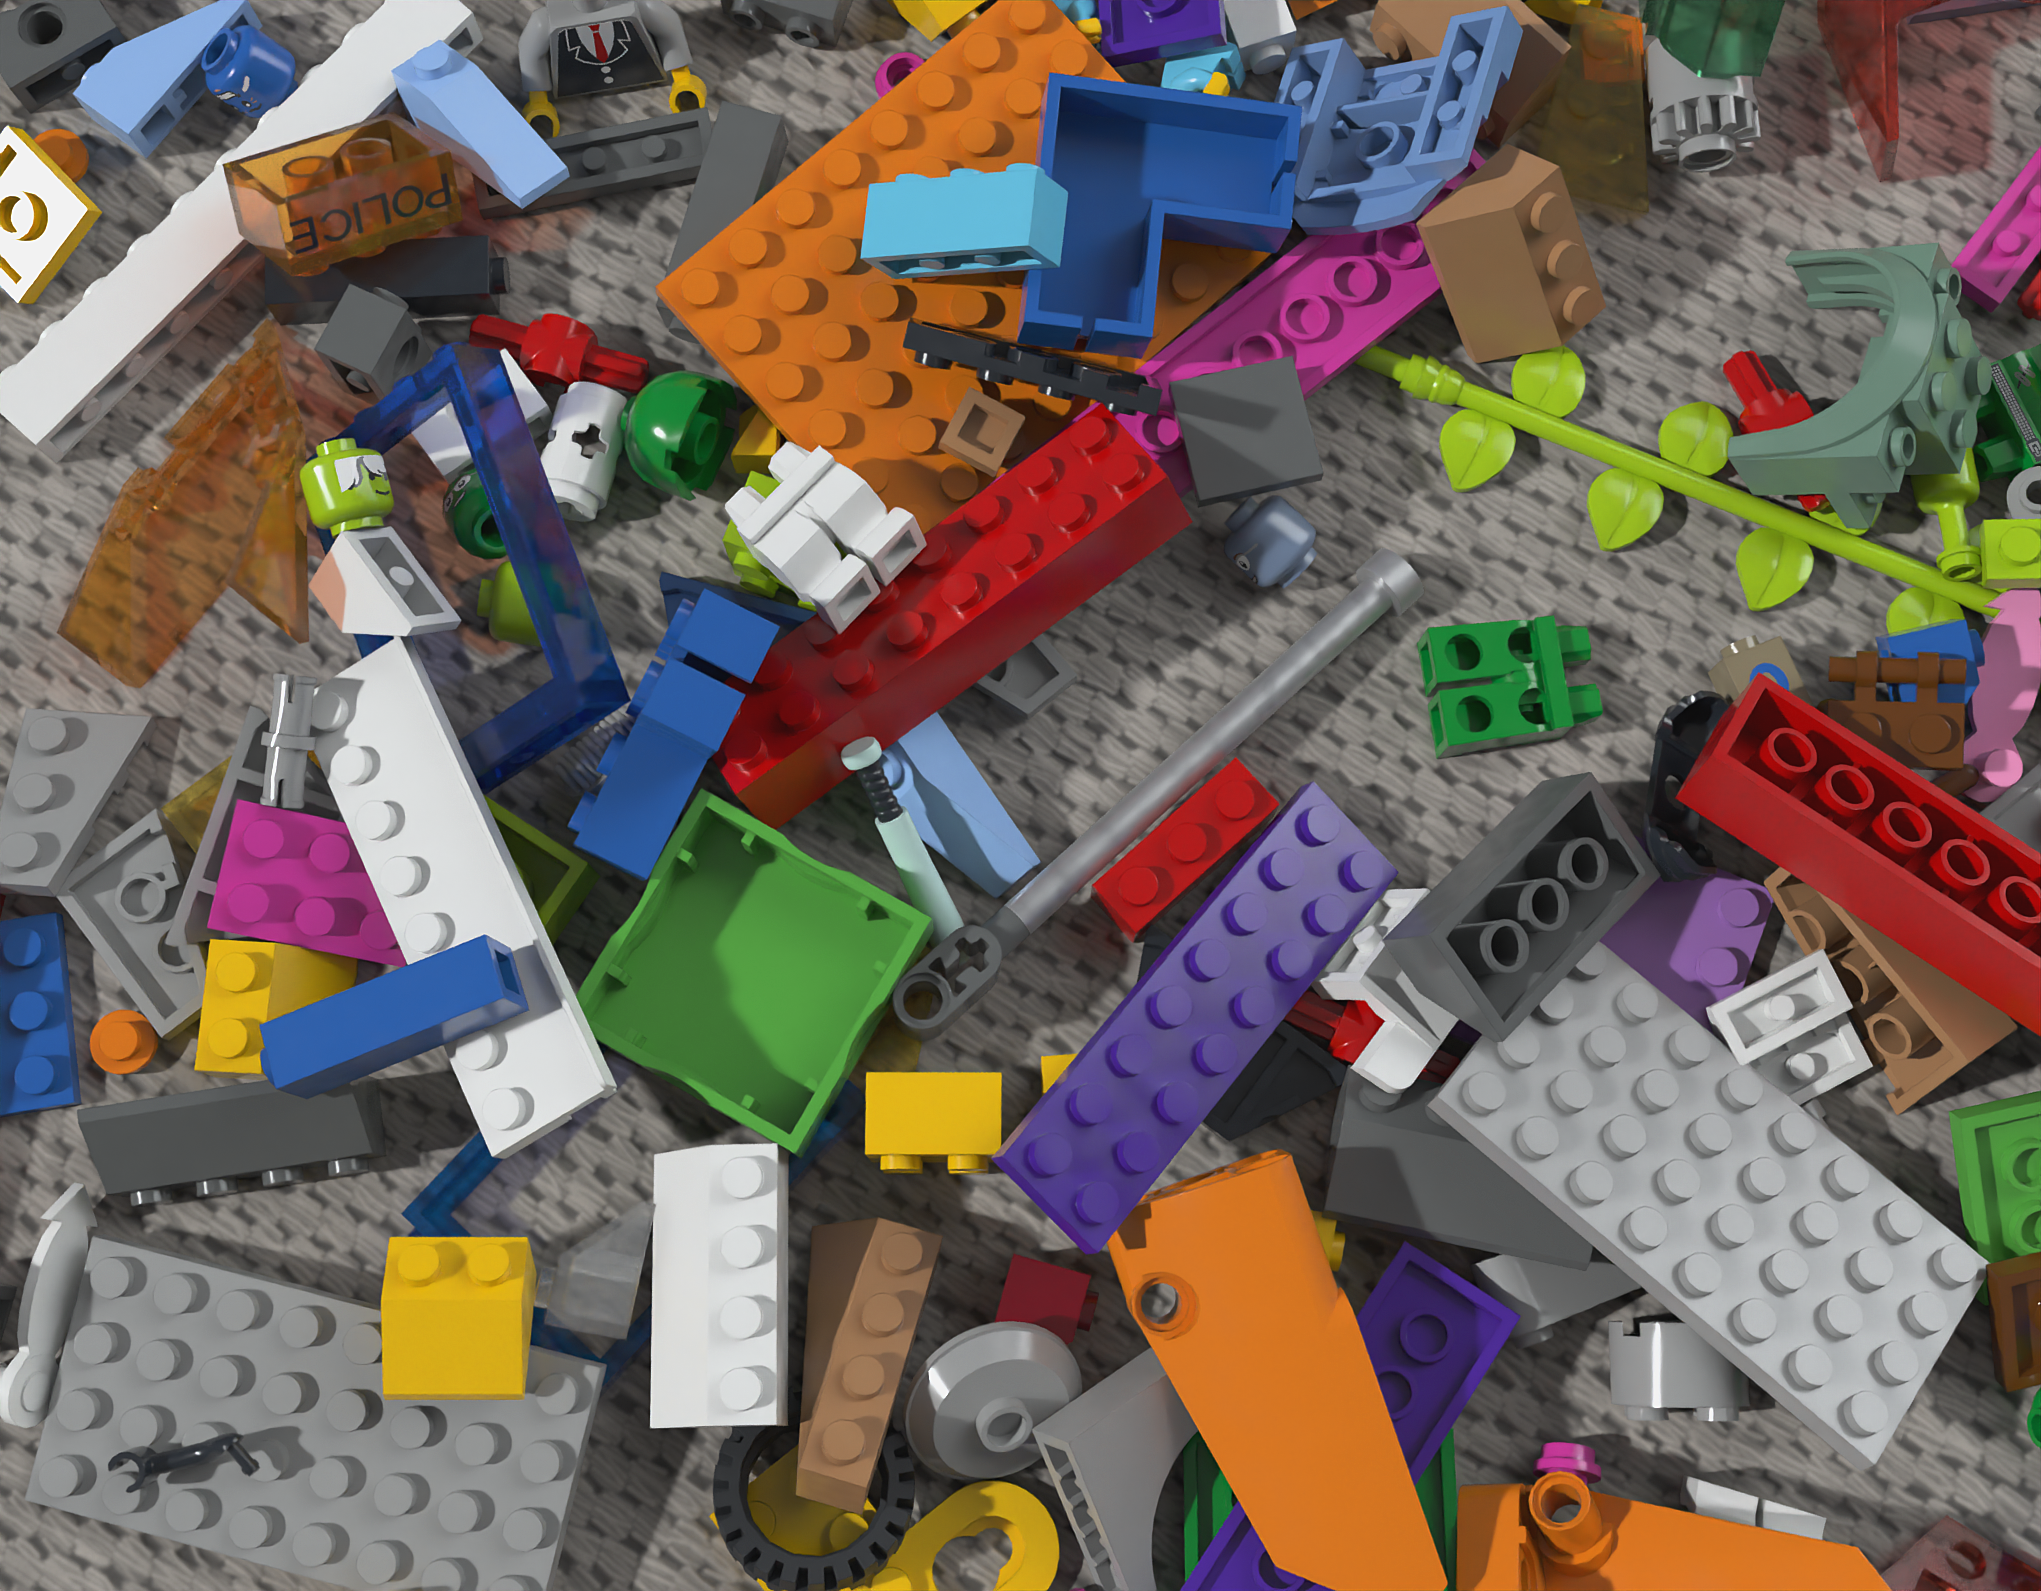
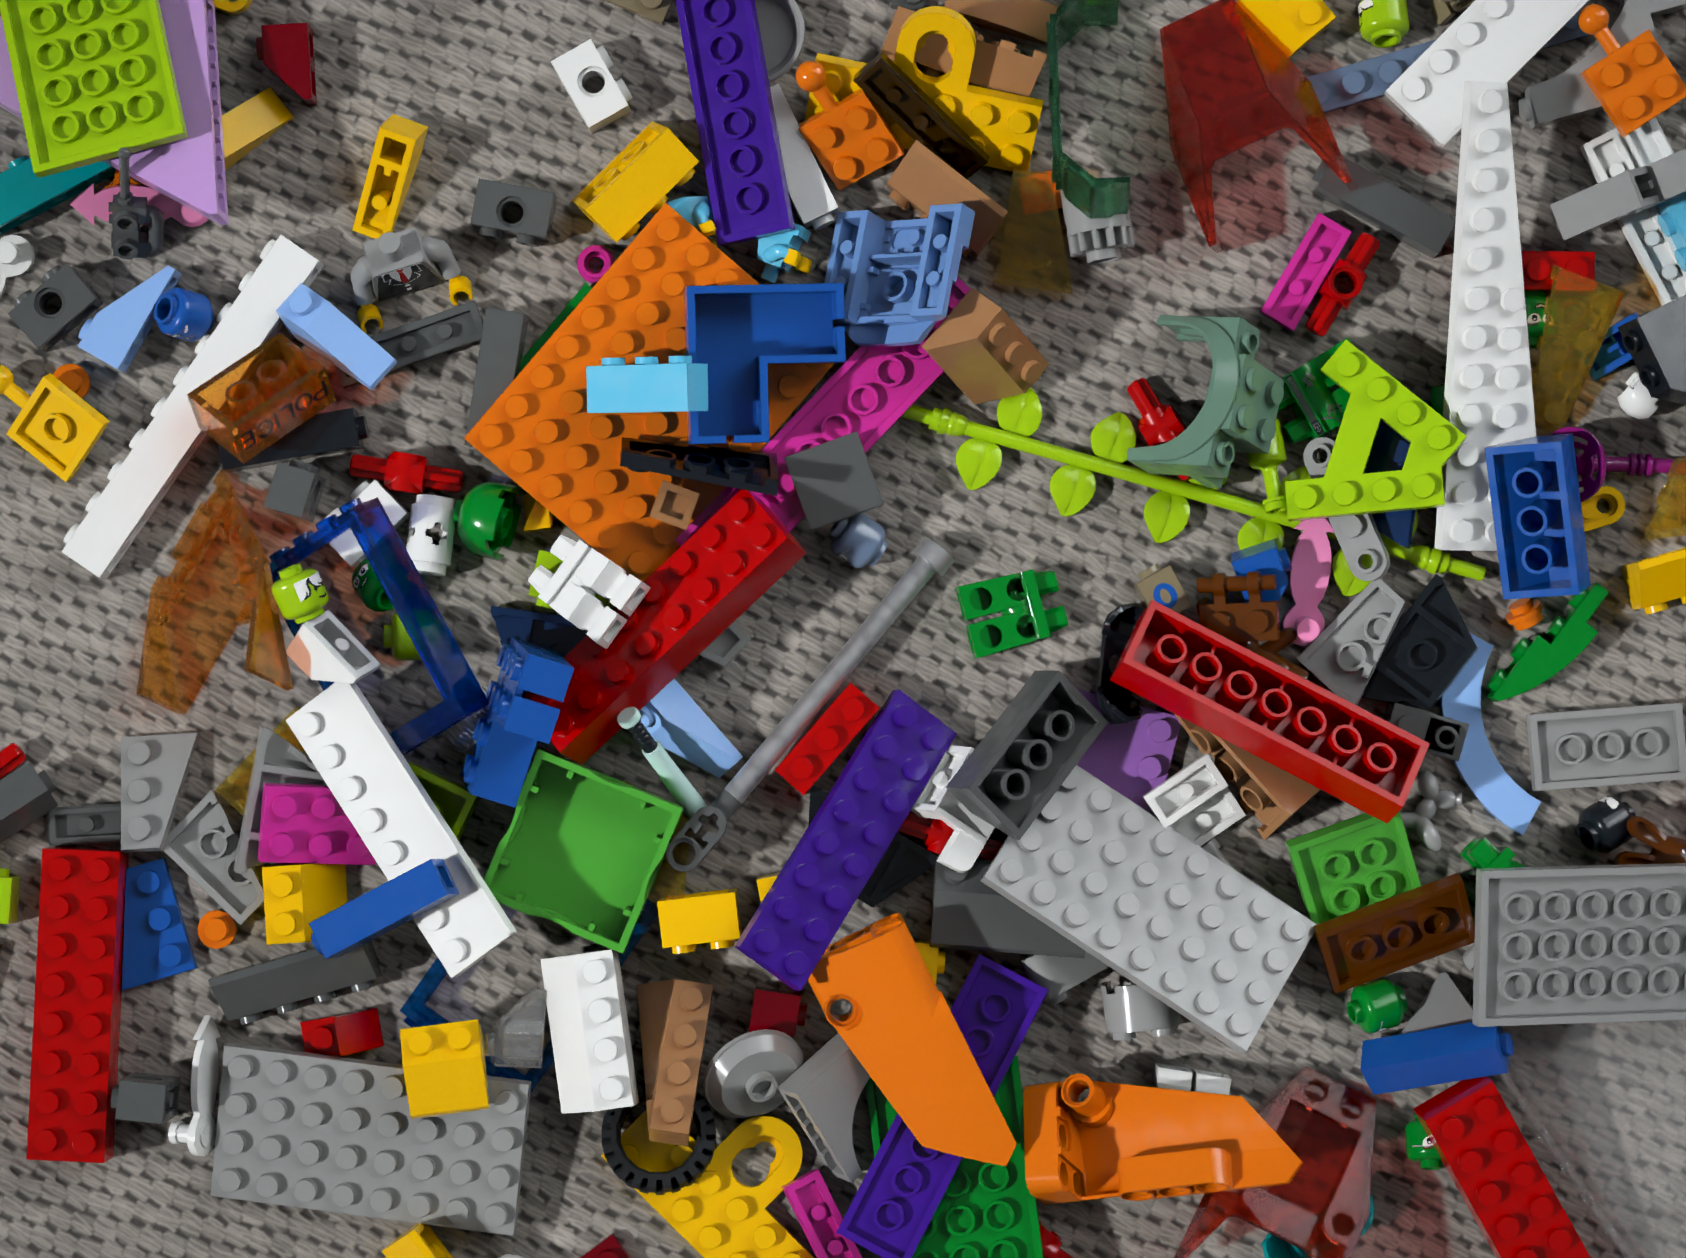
camera: 10 degrees left, 10 degrees up
(153, 1463) = (301, 1162): black piece -> none
(288, 740) = (289, 747): light grey pin -> none
(304, 1244) = (343, 1033): none -> red slope
(1568, 1458) = (1086, 1064): dark pink plate -> none

